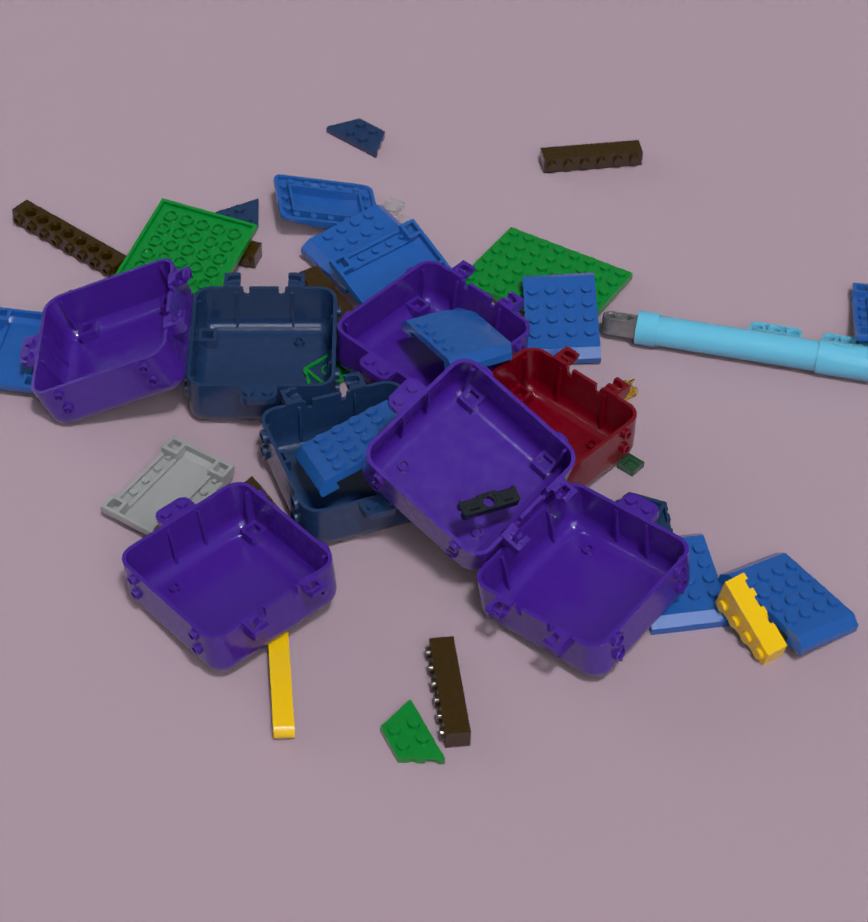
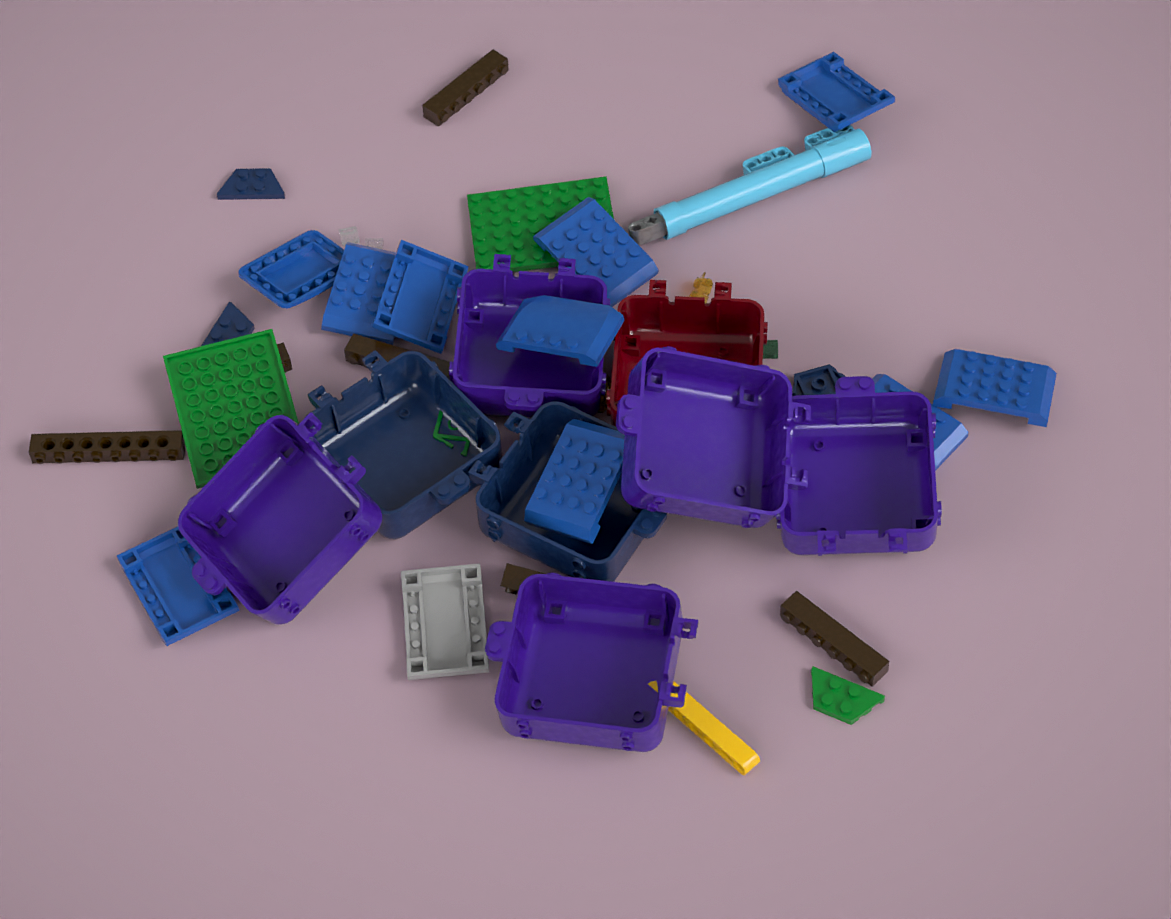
camera: 35 degrees left, 10 degrees up
(501, 499) = (758, 452): black piece -> none
(750, 620) = (990, 423): yellow wedge -> none

